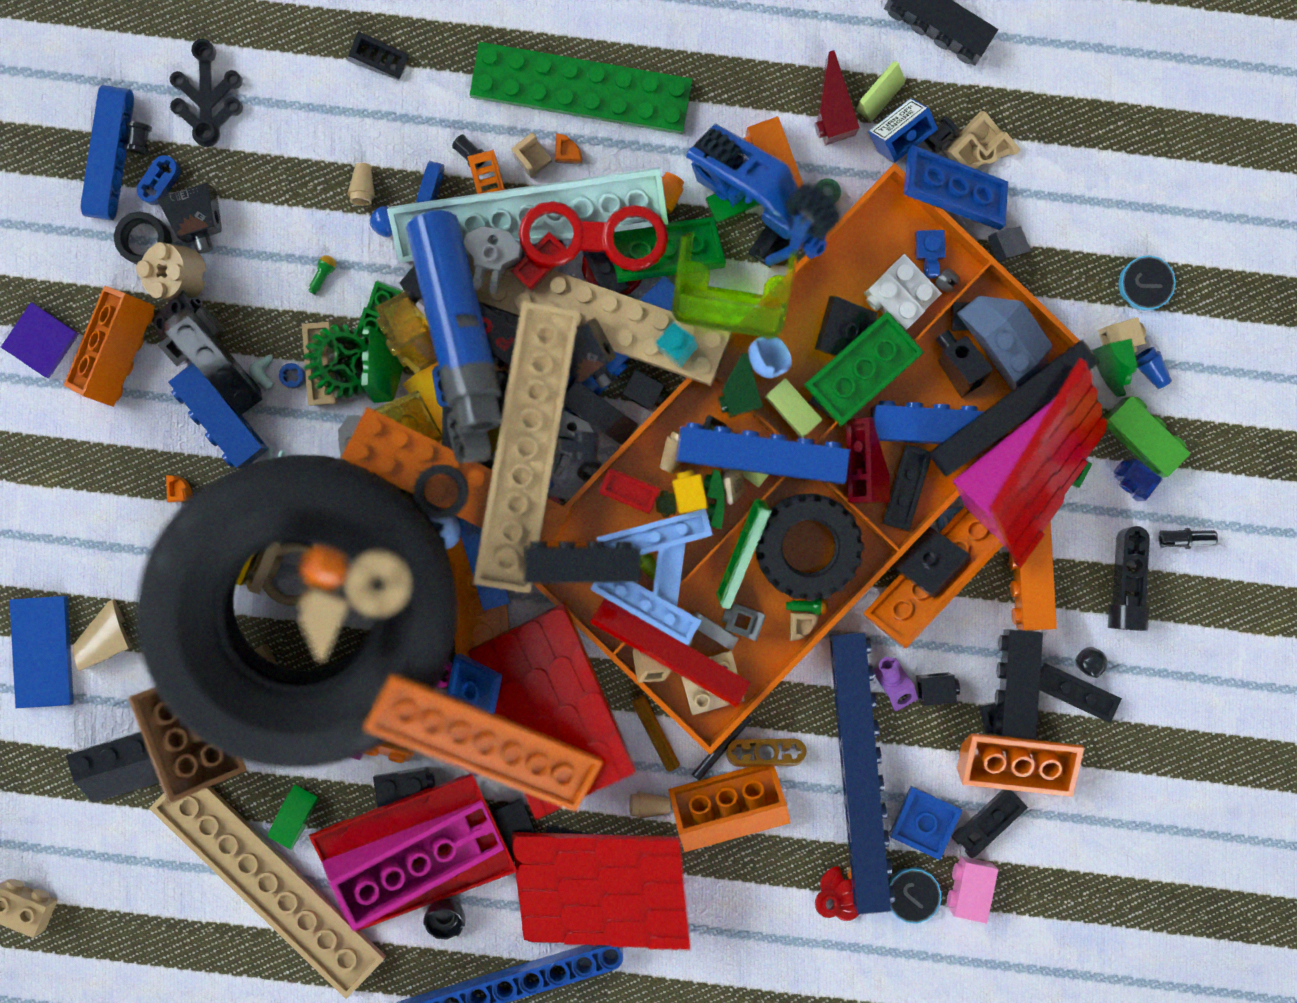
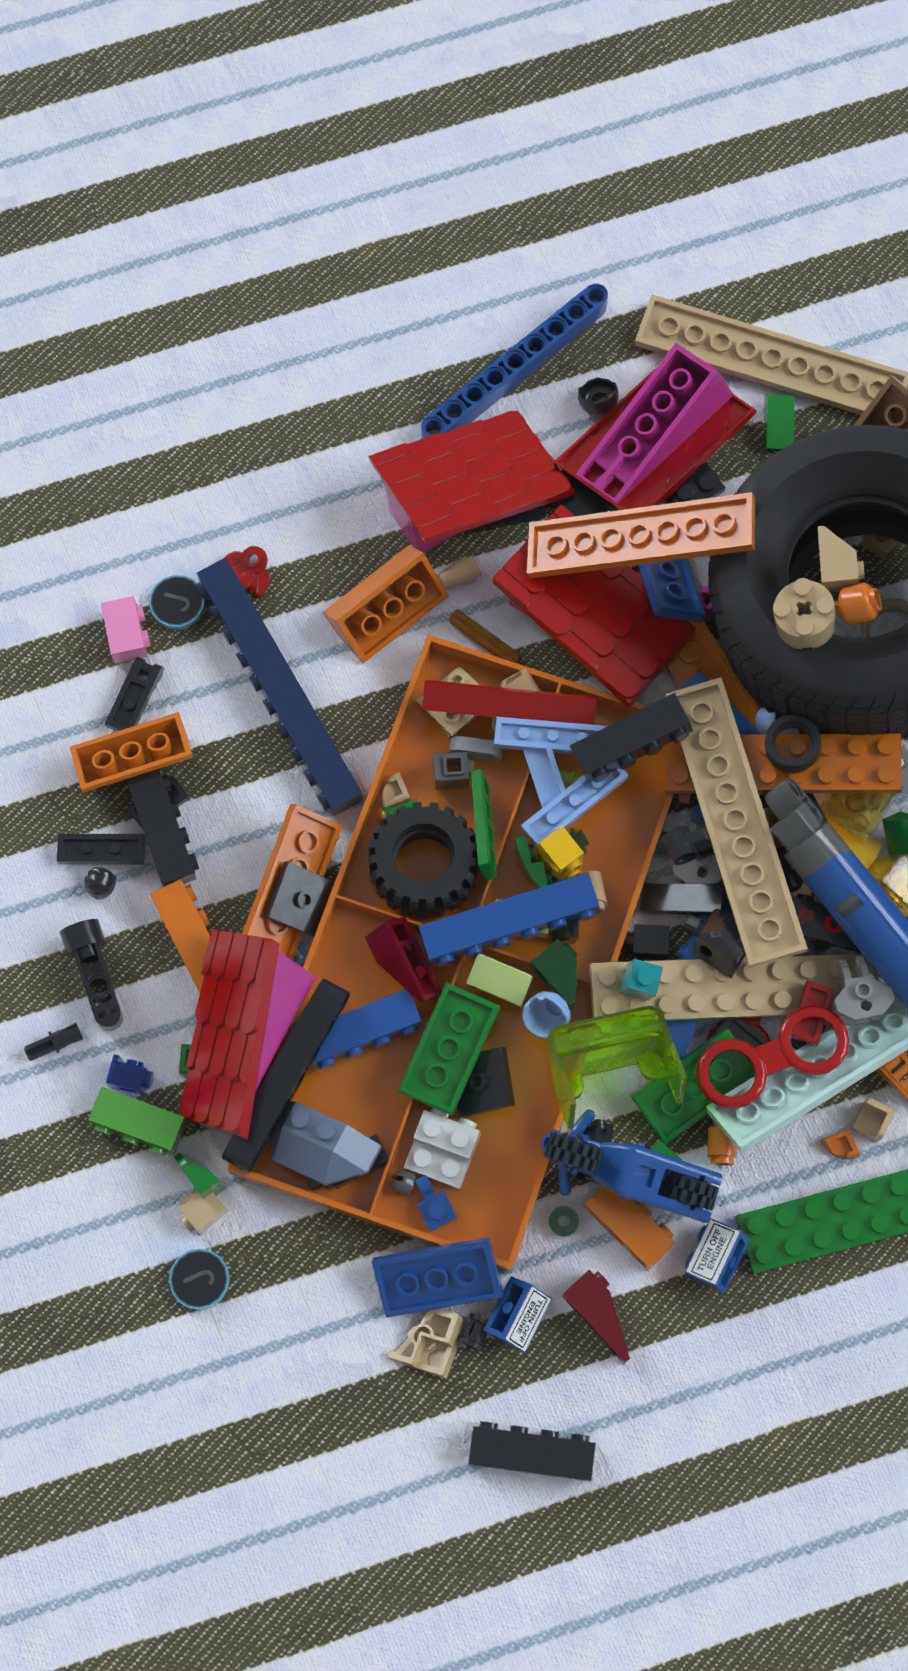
camera: 155 degrees right, 15 degrees down
(629, 490) = (618, 834): red tile -> none
(712, 758) = (424, 630): black bar -> none
(717, 103) = (716, 1255): none -> brick
(733, 484) = (520, 882): tan slope -> none
(773, 743) = (357, 680): pearl gold beam -> none
(881, 92) = (556, 1349): yellowish green slope -> none
(895, 682) = (280, 780): medium lavender bracket -> none
(906, 488) = (352, 961): black tile -> none
(925, 822) = (195, 669): blue plate -> none
(937, 688) = (237, 793): black brick -> none
(962, 363) = (342, 1097): black torso -> none
(1009, 243) = (358, 1247): black tile -> none
(1153, 367) = (158, 1195): blue cone -> none

